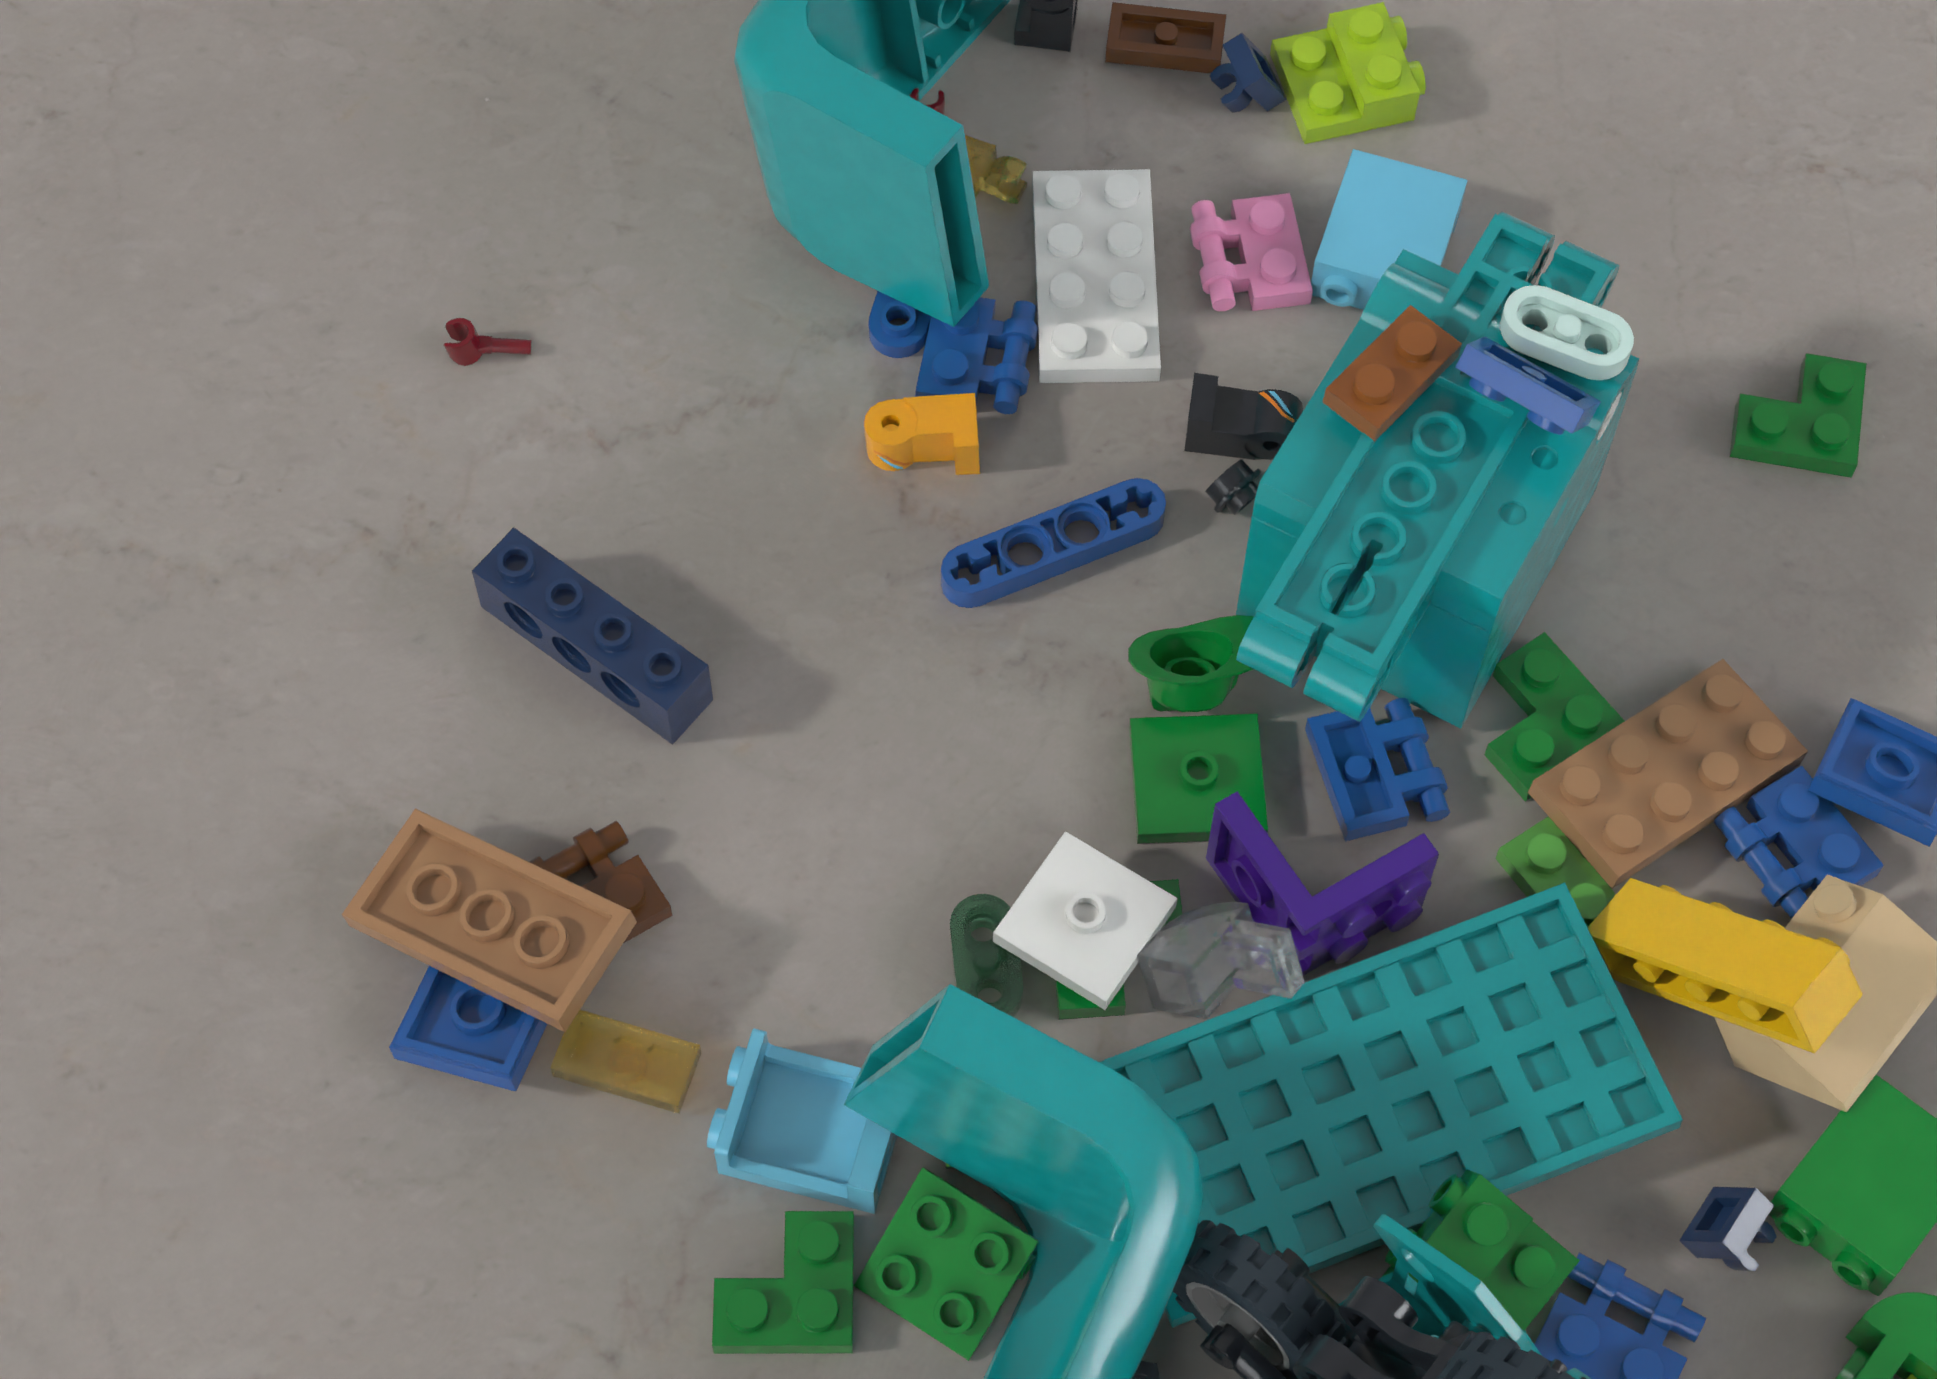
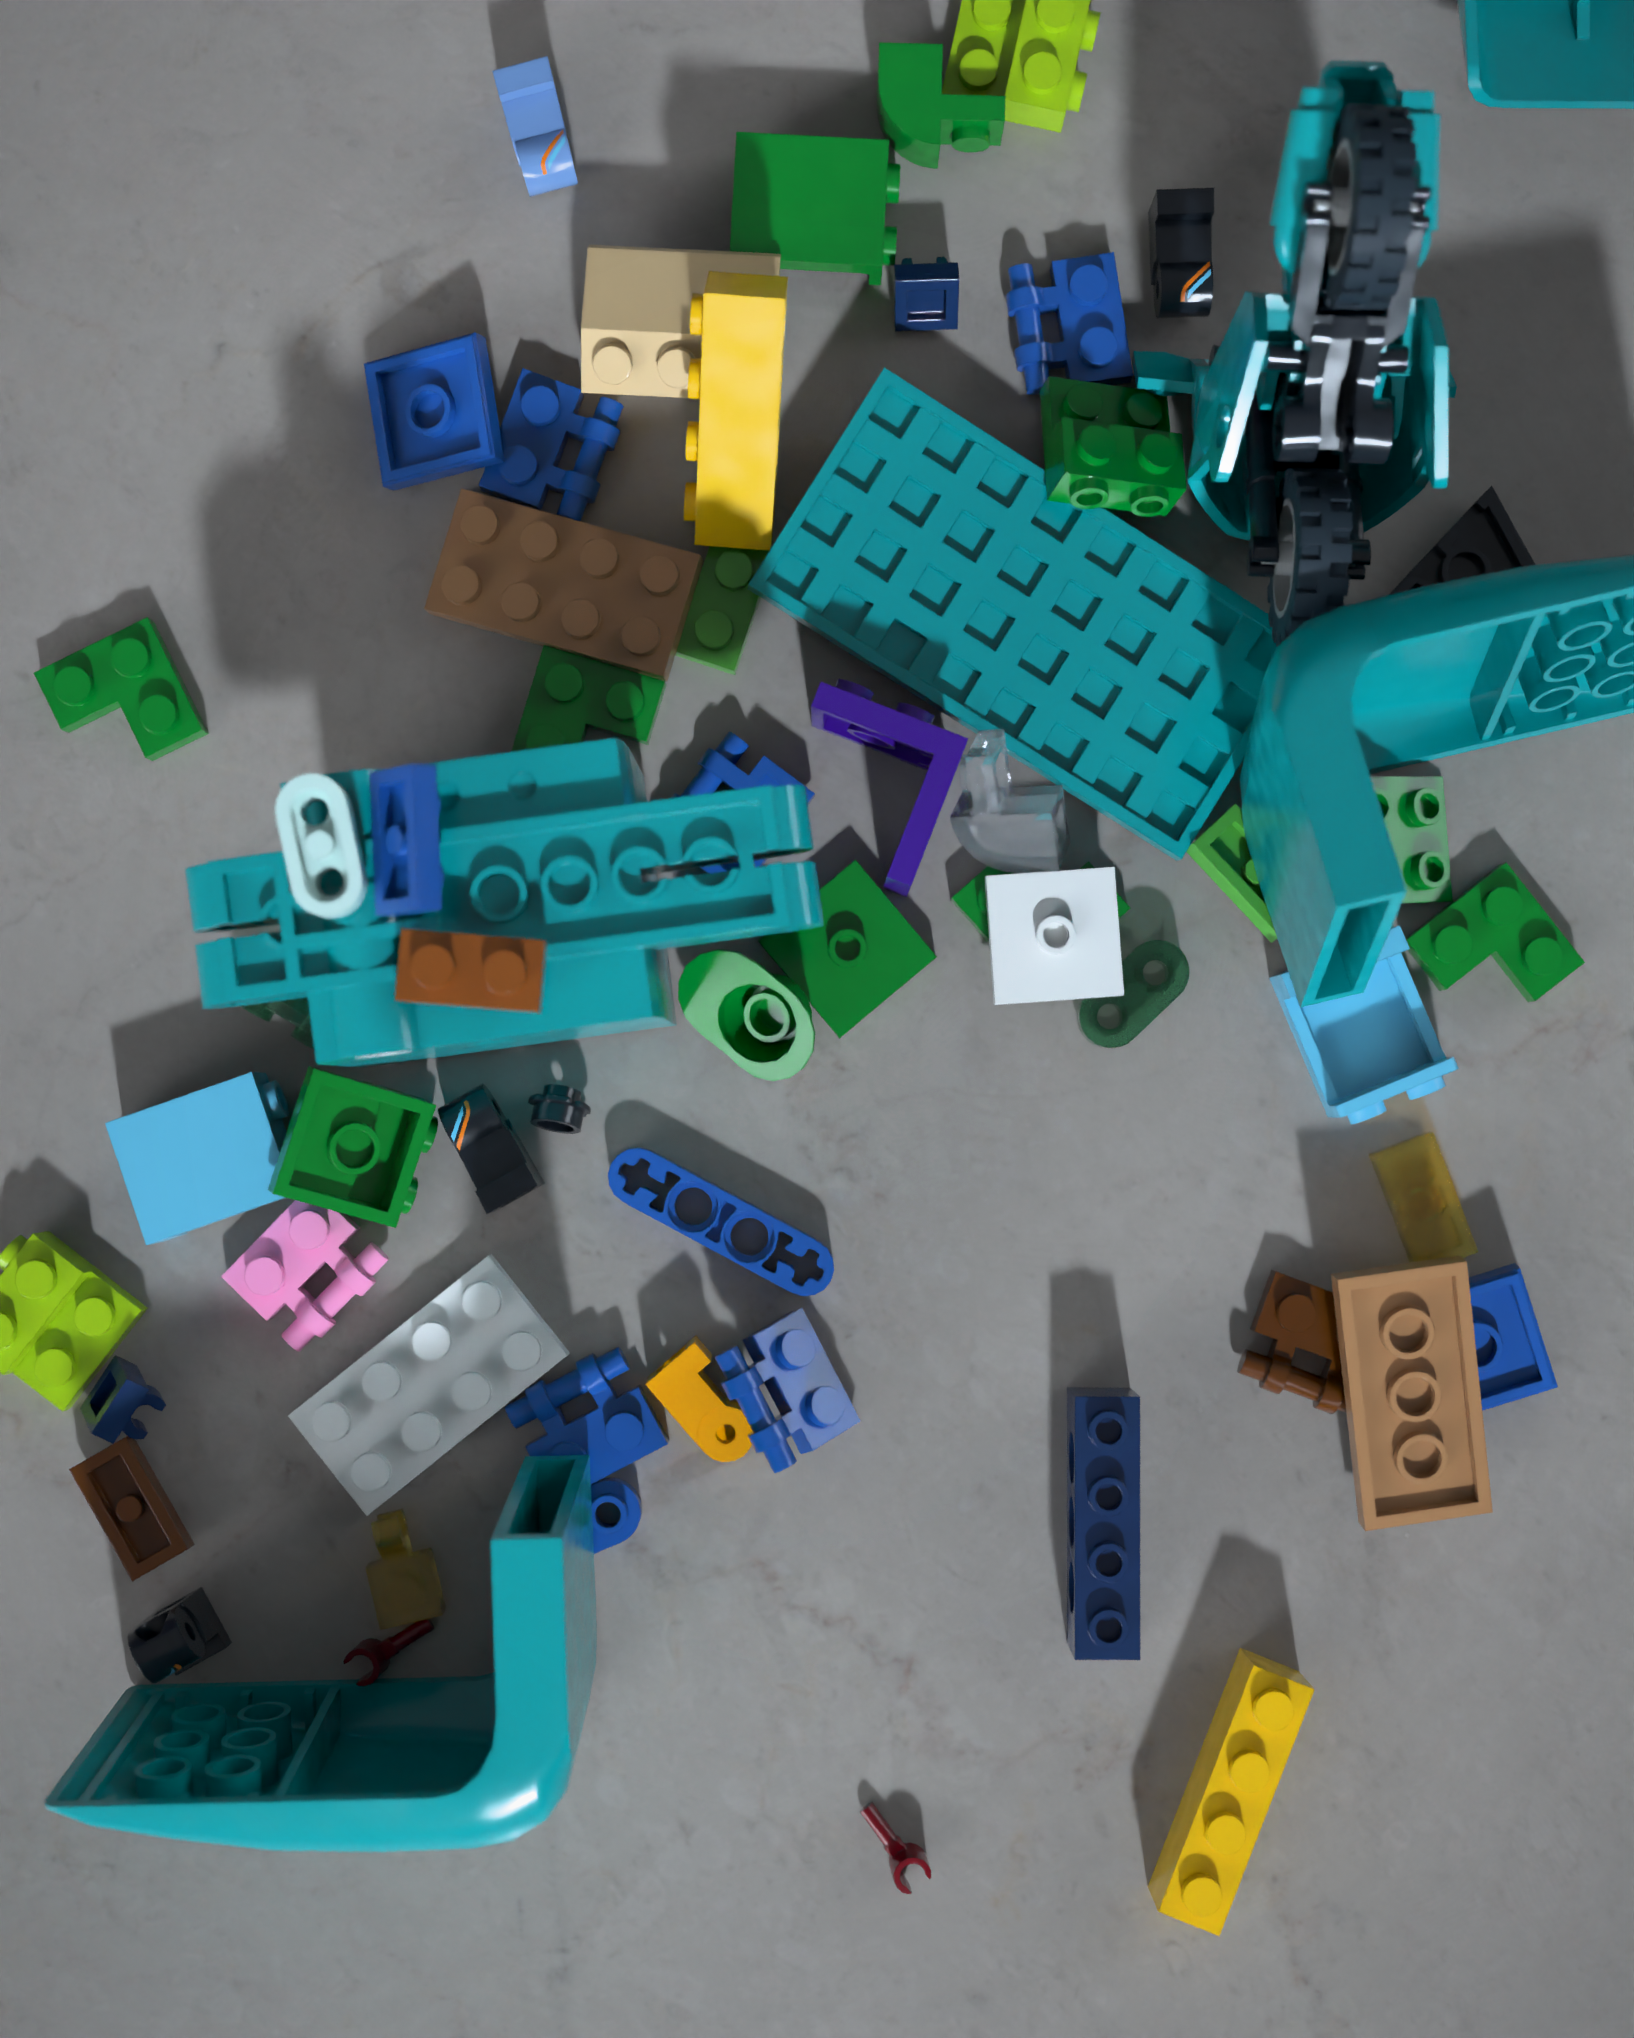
camera: 125 degrees left, 25 degrees up
(316, 582) = (1229, 1791): none -> yellow brick
(882, 506) = (800, 1383): none -> plate
(1306, 315) = (354, 1147): none -> green plate

